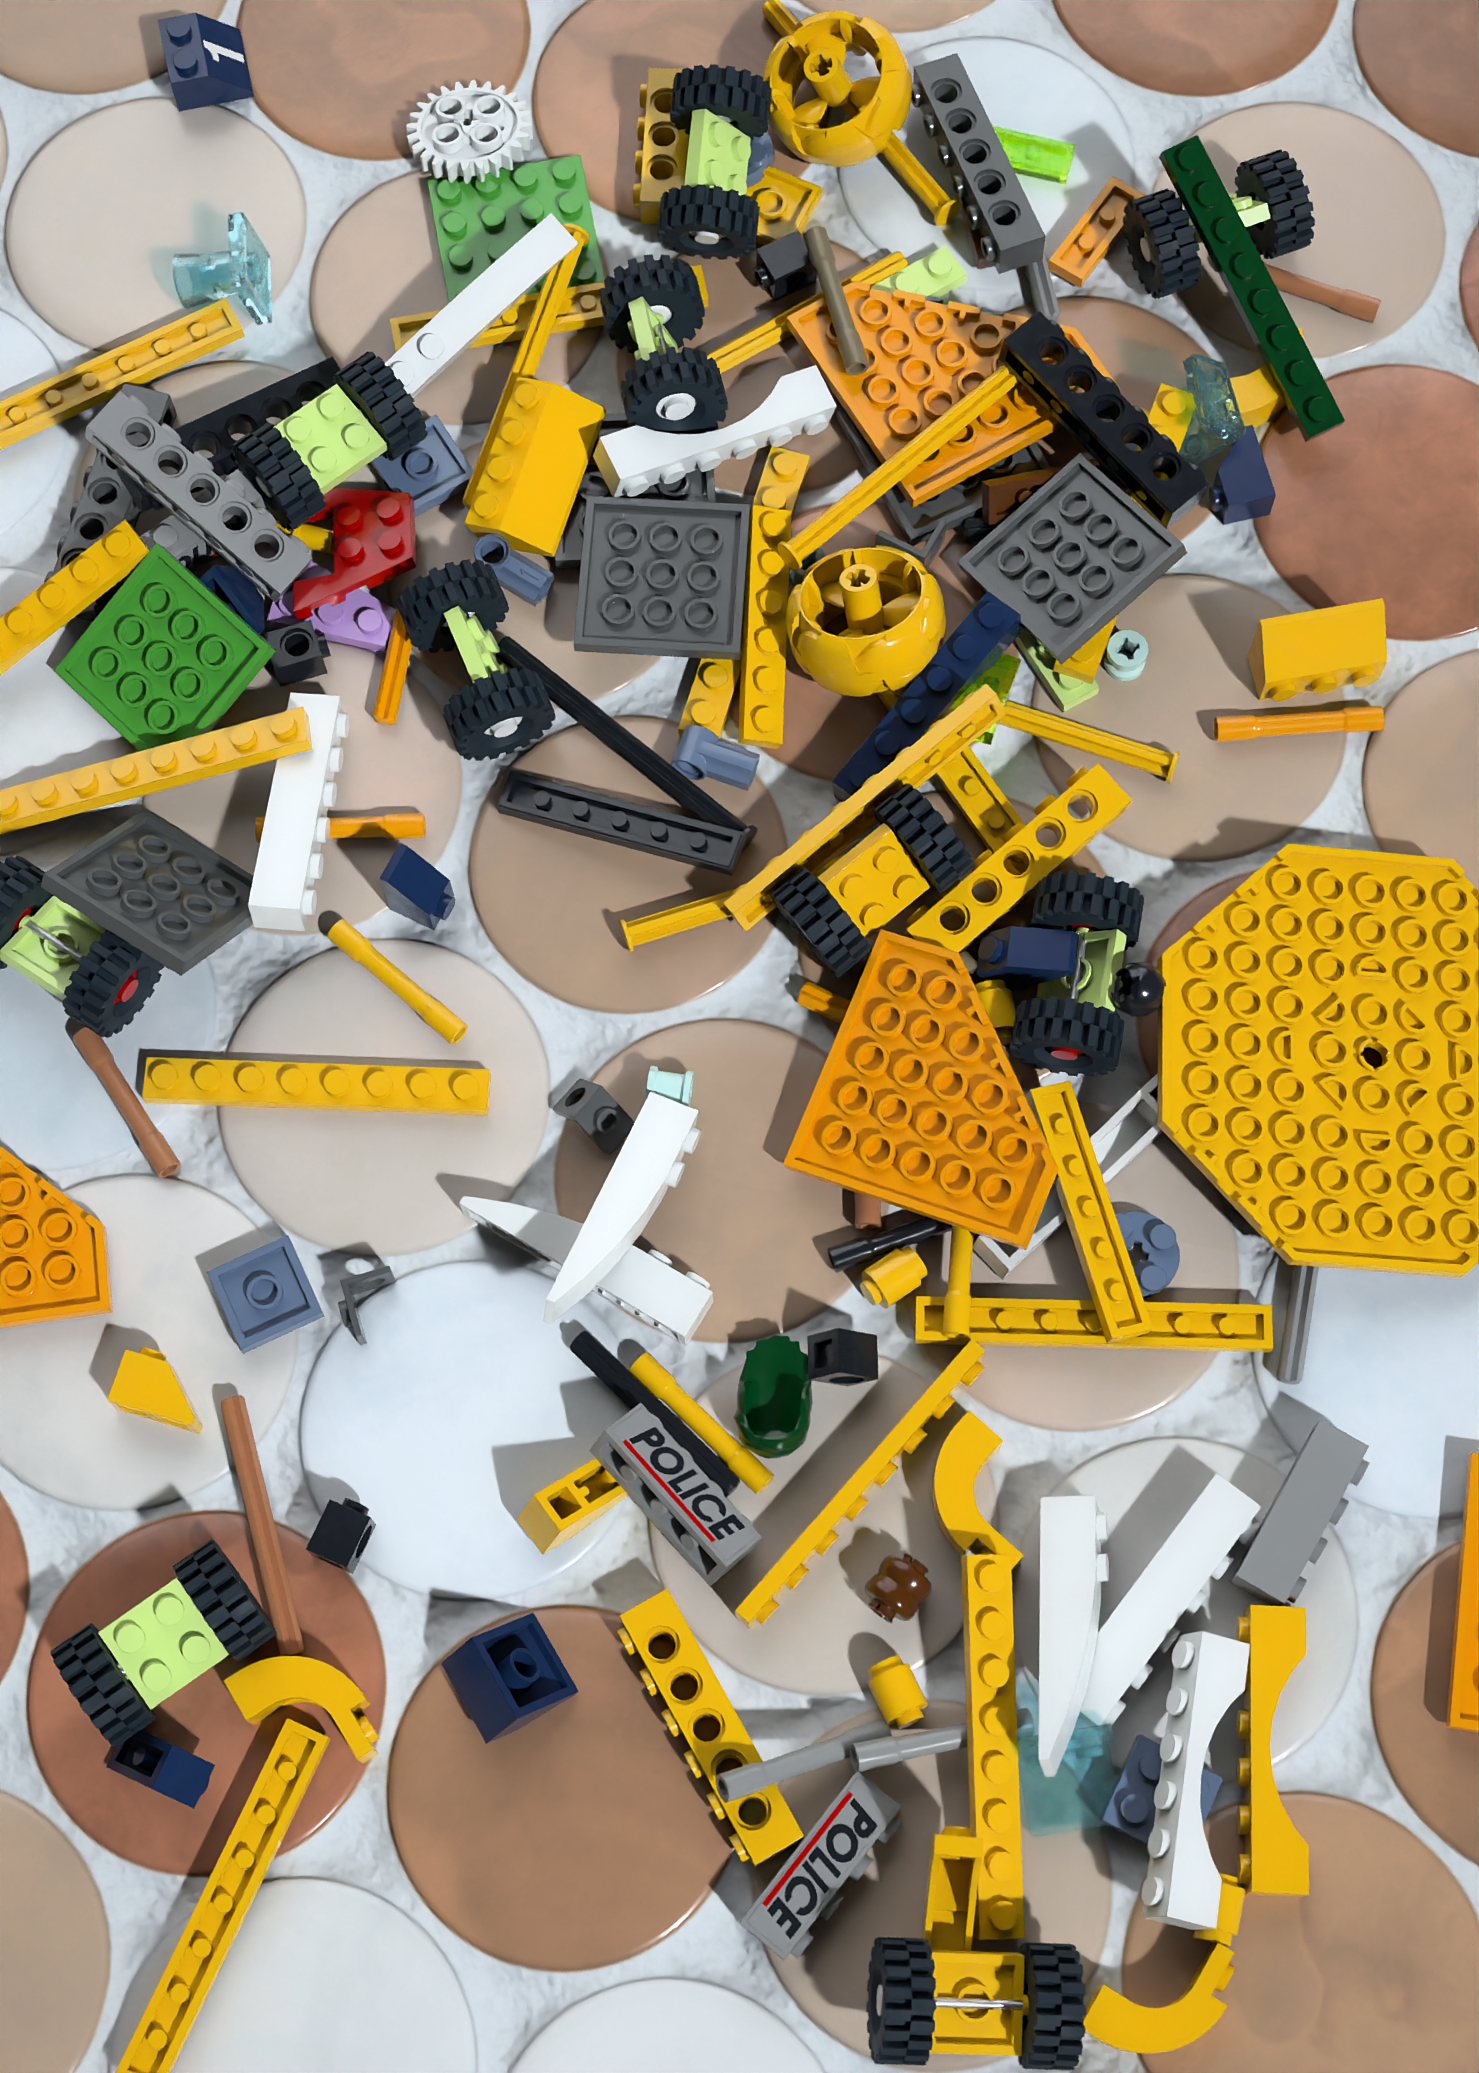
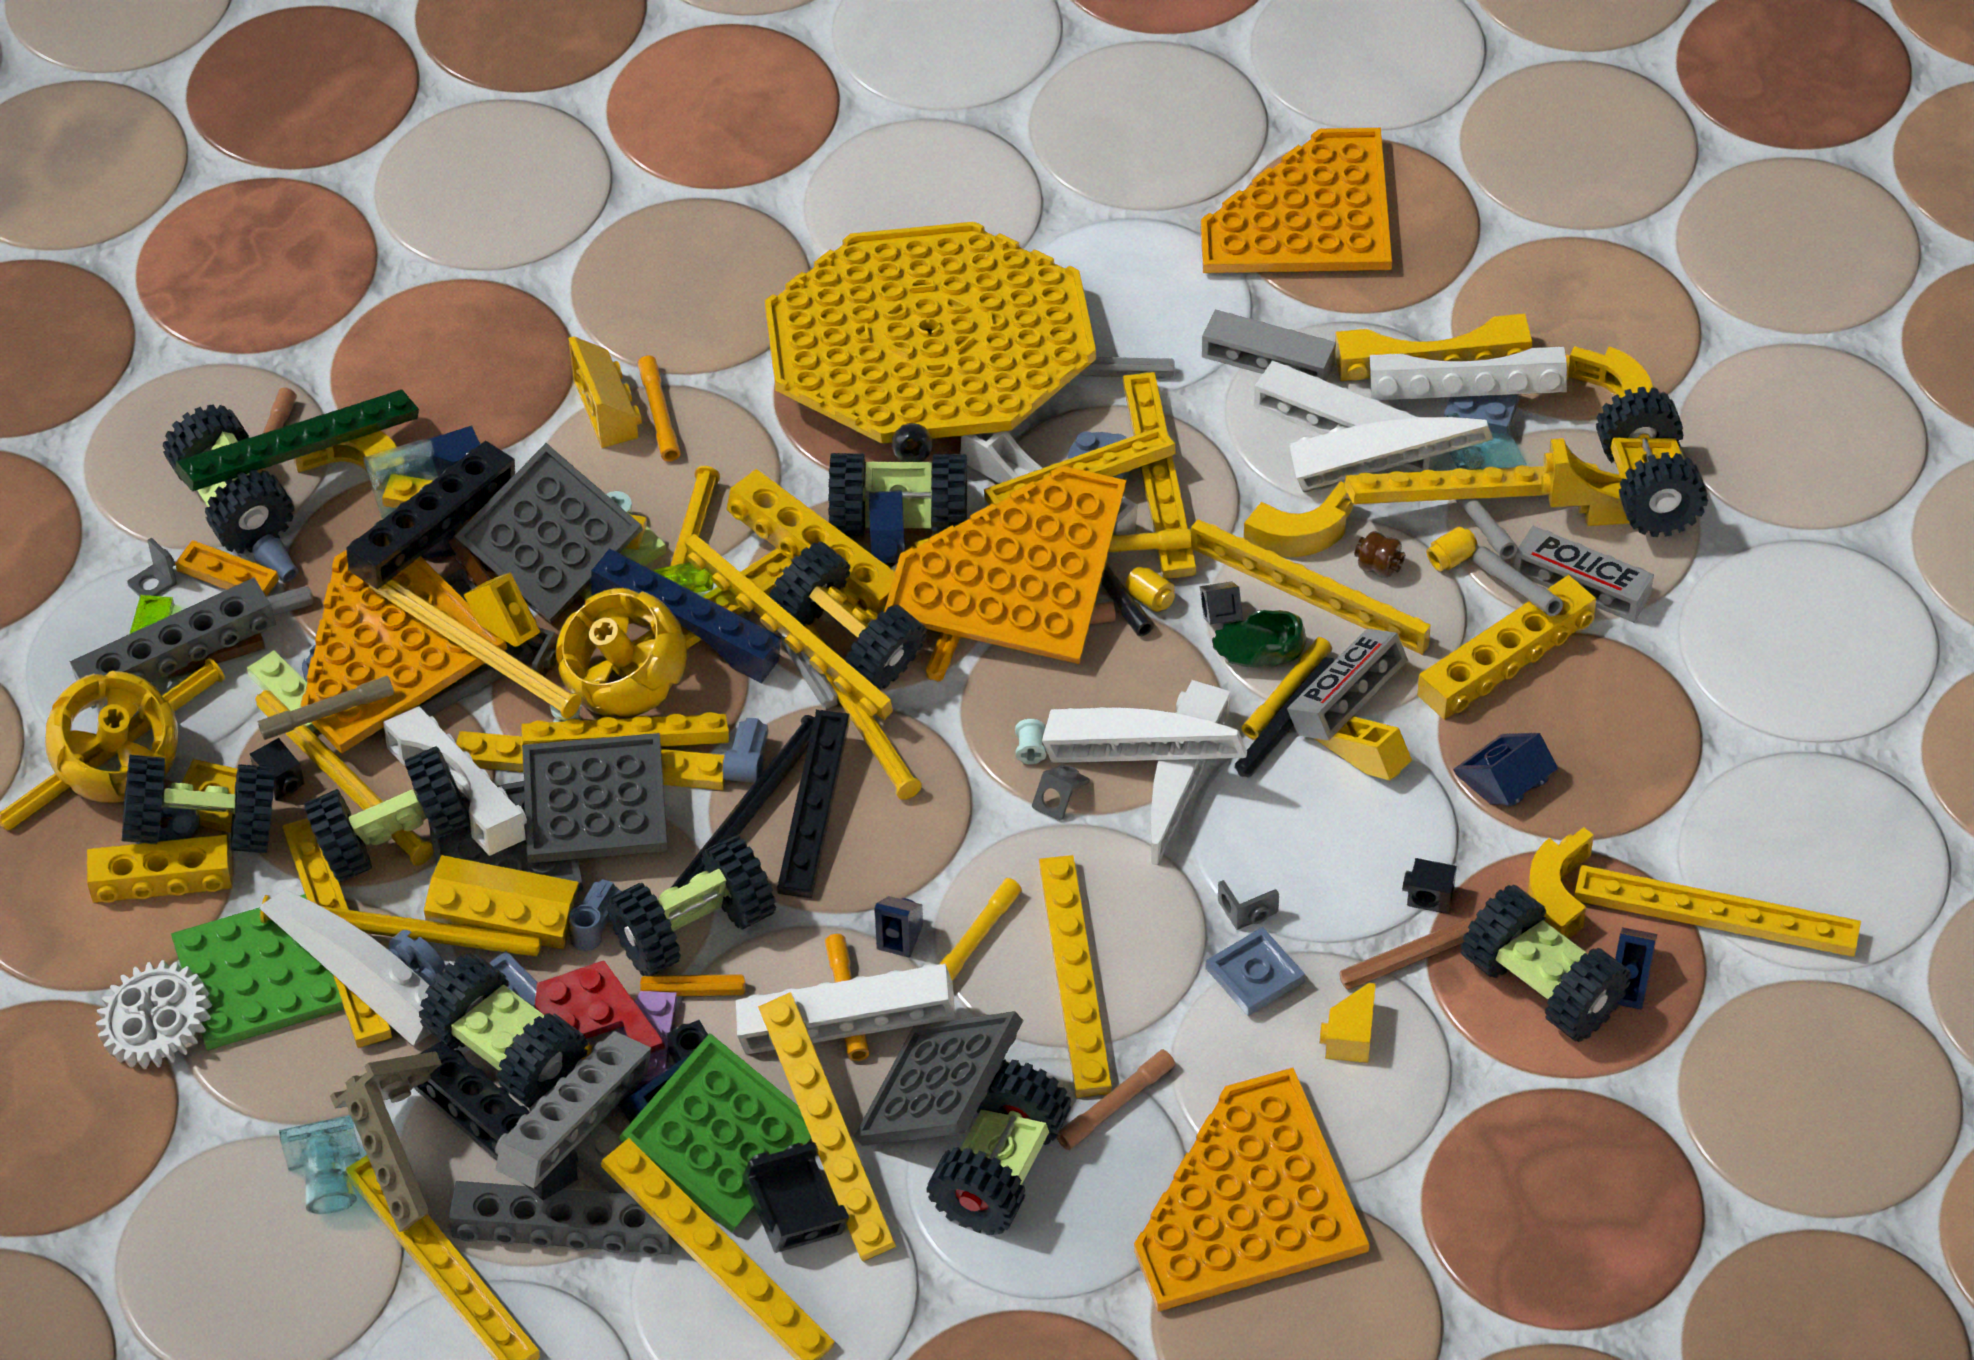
camera: 100 degrees left, 20 degrees down
(64, 728) = (793, 1197): none -> black panel
(204, 61) = (85, 1244): dark blue slope -> none
(279, 311) = (364, 1099): none -> dark tan bracket
(466, 378) = (418, 956): none -> sand blue plate
(945, 492) = (502, 610): none -> yellow slope
(1109, 281) = (273, 555): none -> sand blue cone
(1112, 161) = (161, 570): none -> dark grey bracket

